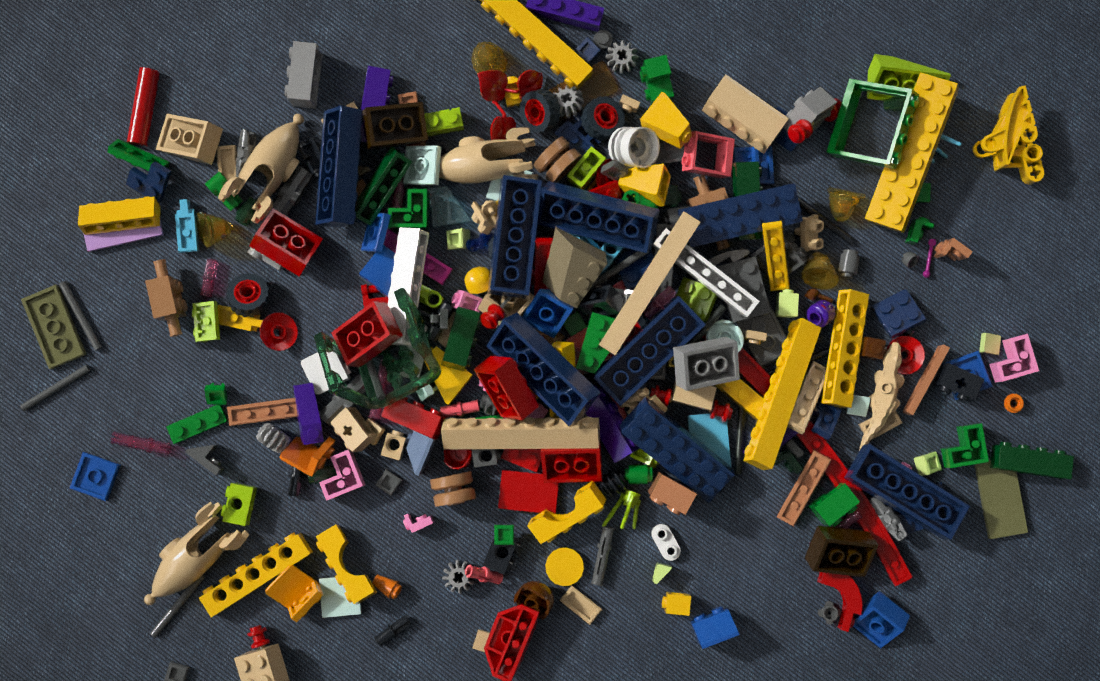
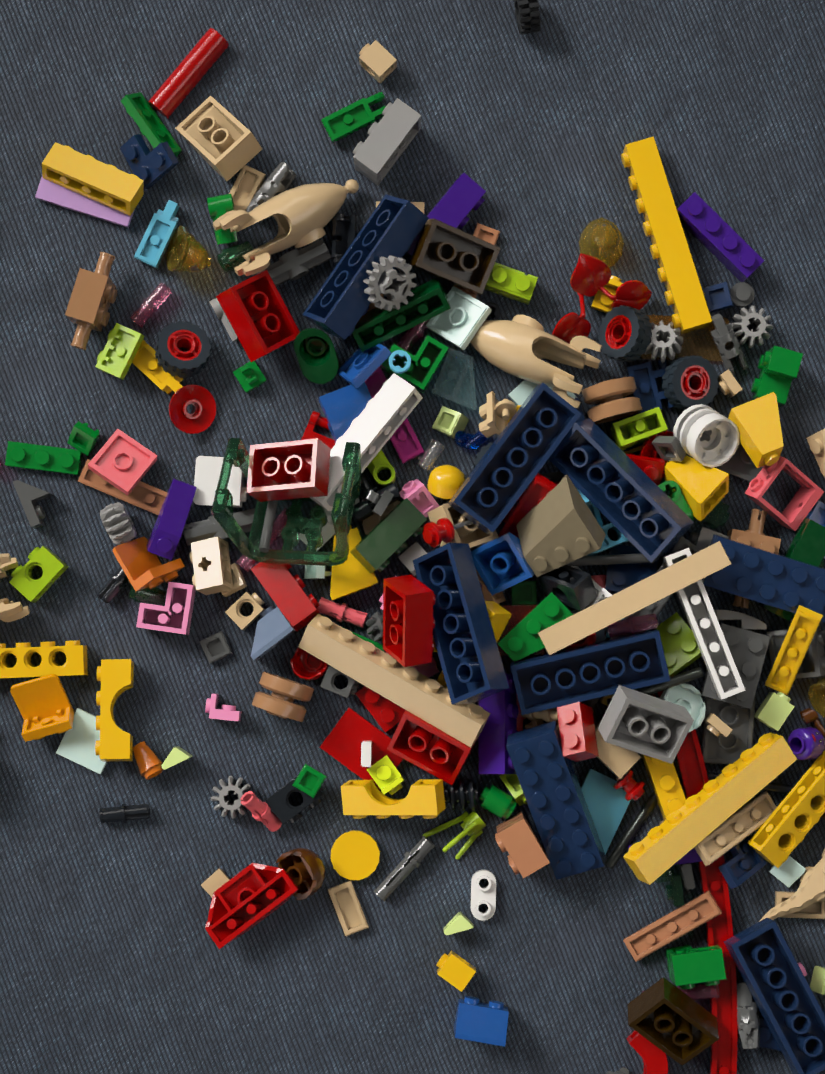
camera: 30 degrees right, 0 degrees up
(252, 394) = (122, 462): none -> coral plate
(266, 25) = (377, 61): none -> tan brick
(271, 72) = (352, 117): none -> green hinge
(304, 287) = (249, 376): none -> green tile
(341, 246) = (316, 355): none -> dark green piece
(364, 168) = (390, 283): none -> light grey gear
(401, 223) = (397, 369): none -> medium azure bush
(404, 572) = (176, 756): none -> yellowish green slope
(458, 269) = (430, 455): none -> clear pin
(481, 347) = (411, 554): none -> white tile
(531, 494) = (366, 753): none -> white tile
(554, 500) = (386, 775): none -> neon yellow bracket
(605, 73) = (722, 334): none -> dark grey hinge
(664, 395) = (577, 732): none -> brick

